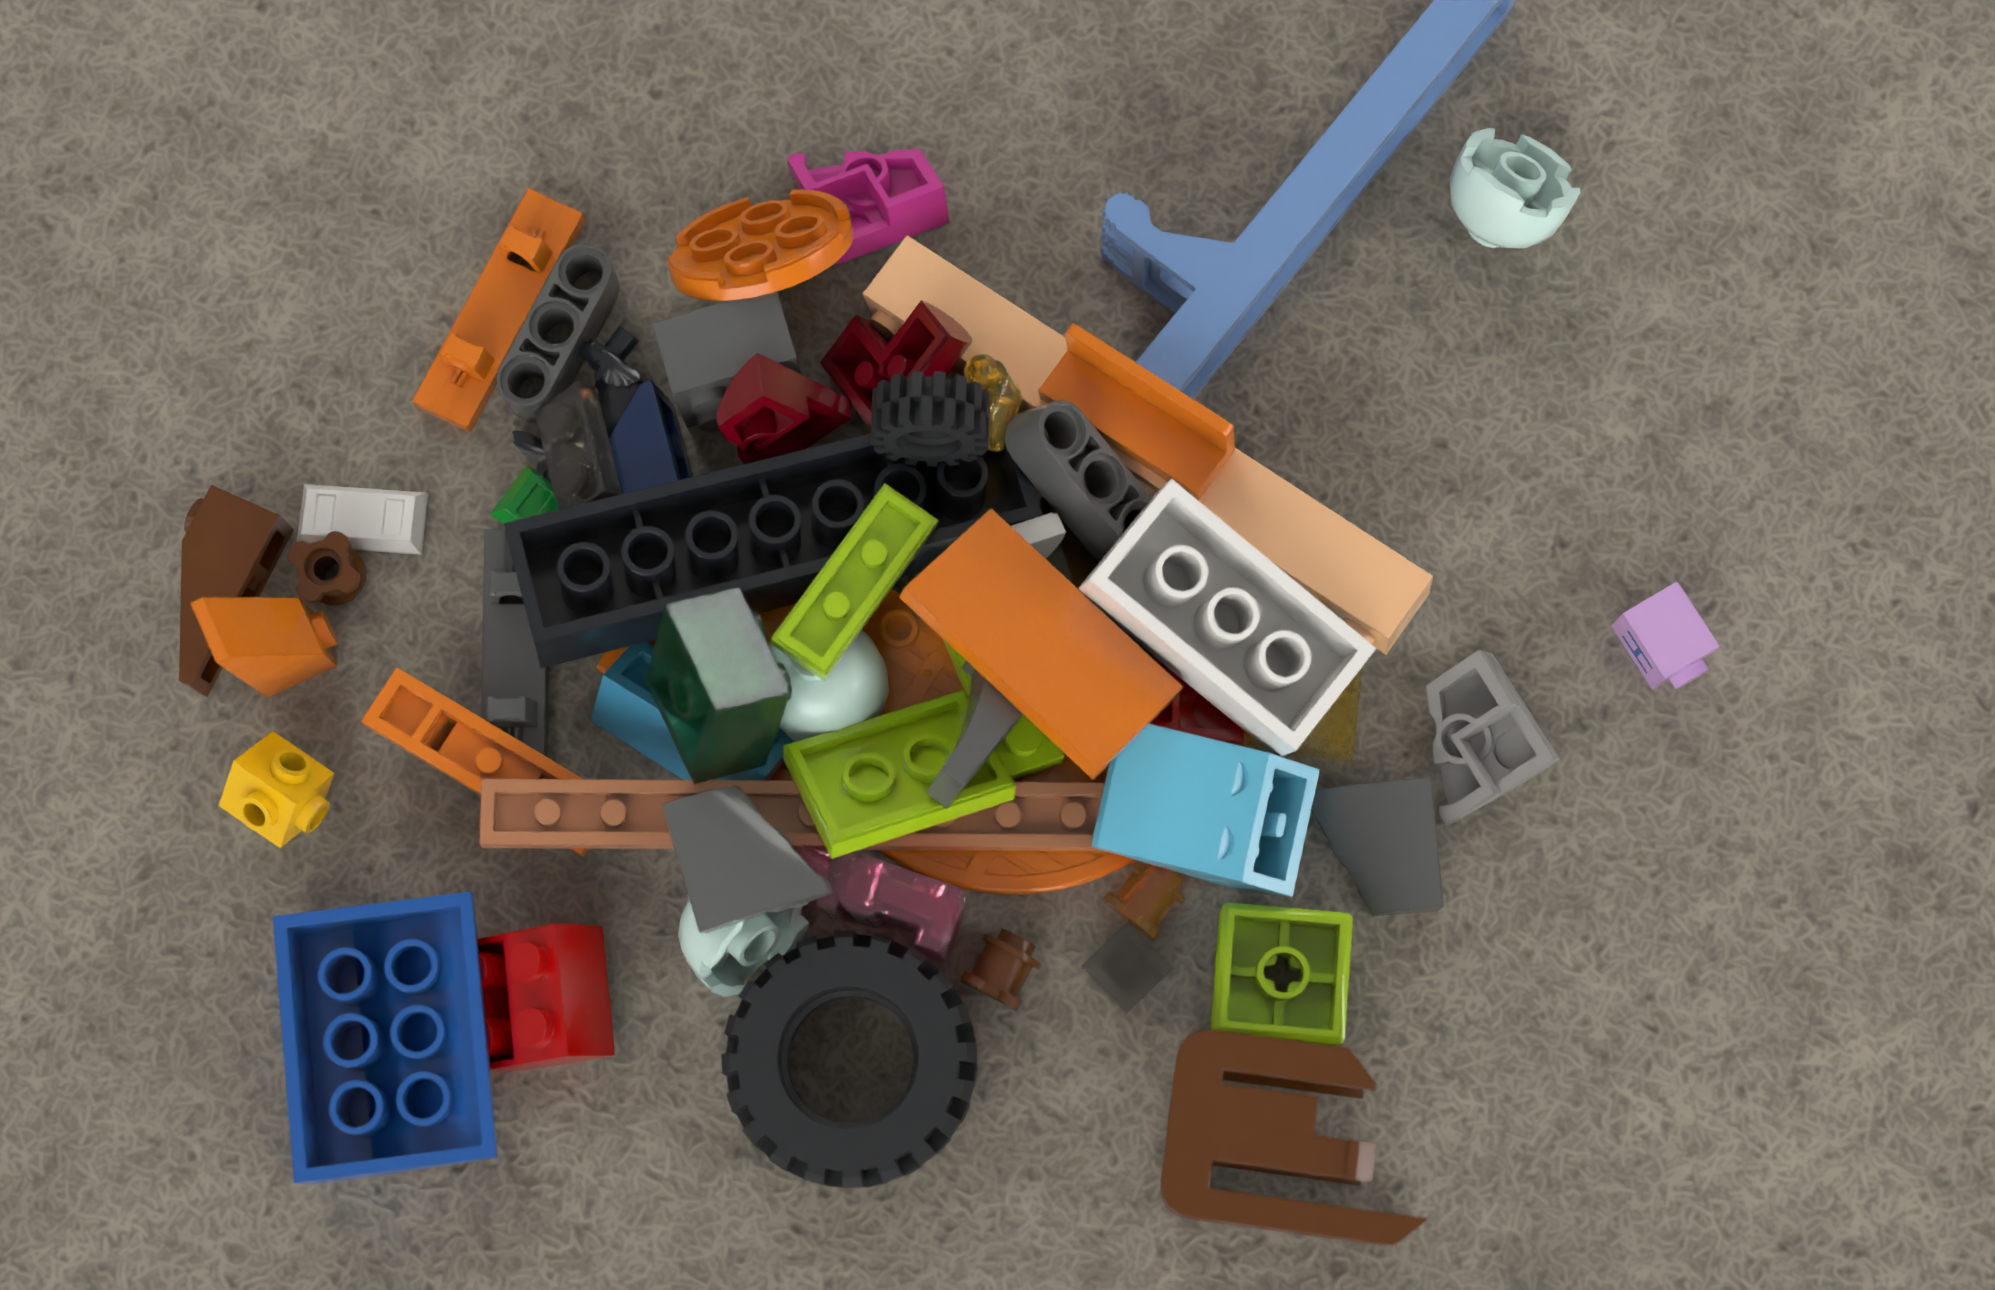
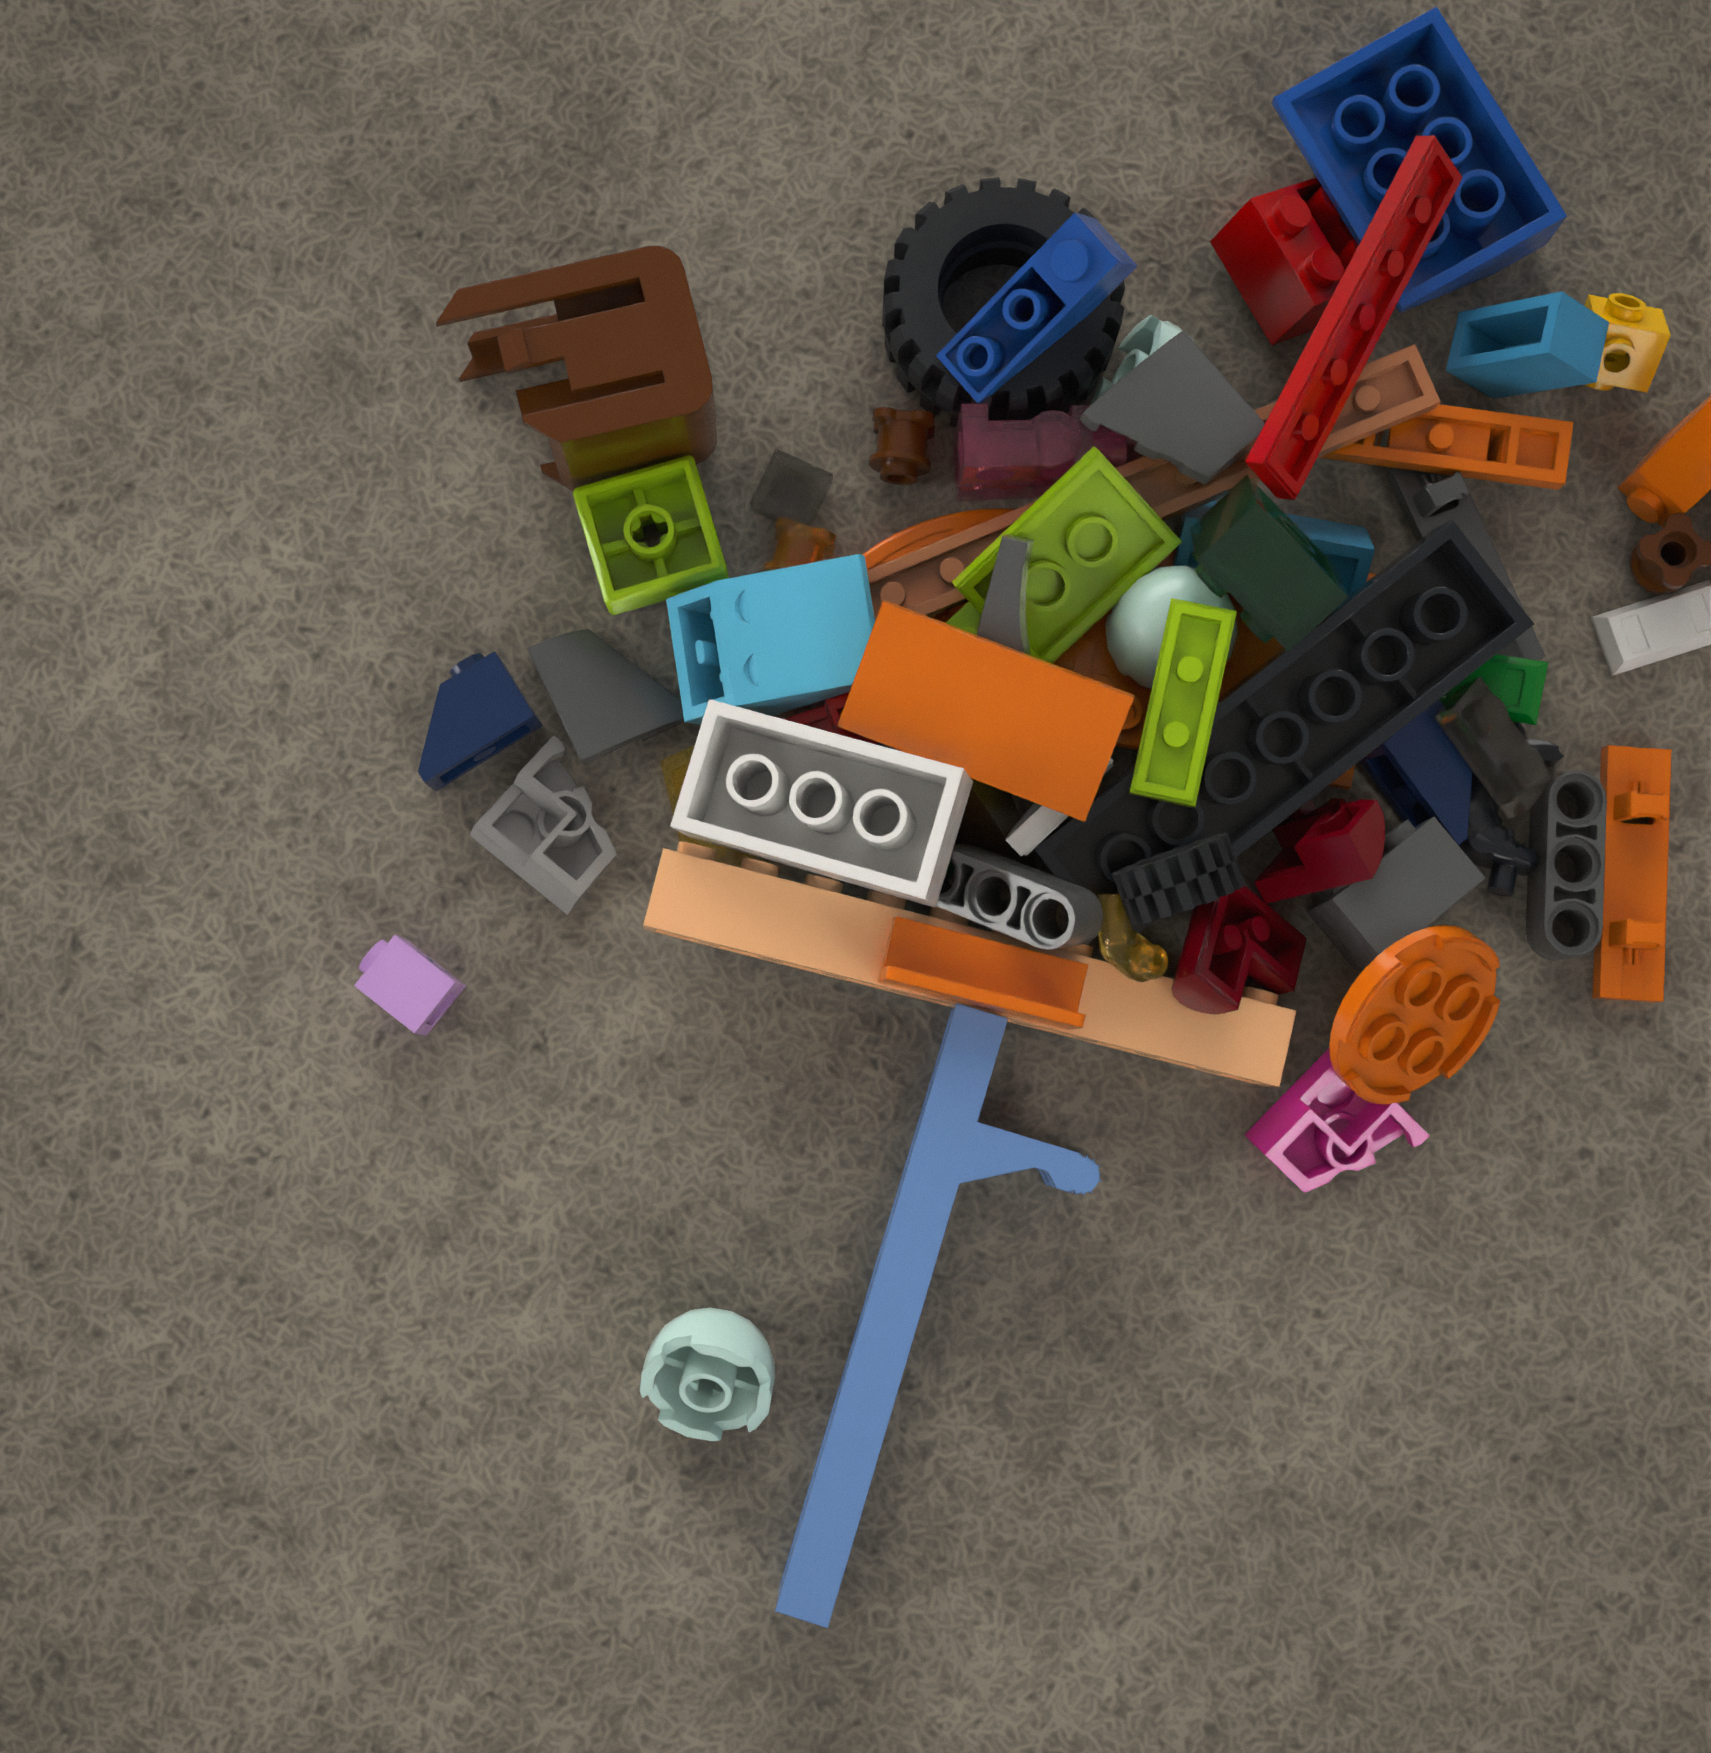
camera: 155 degrees right, 5 degrees up
(369, 810) = (1527, 346): none -> dark azure brick
(526, 885) = (1354, 318): none -> red tile
(827, 1012) = (1037, 306): none -> blue slope
(1514, 864) = (474, 719): none -> dark blue slope

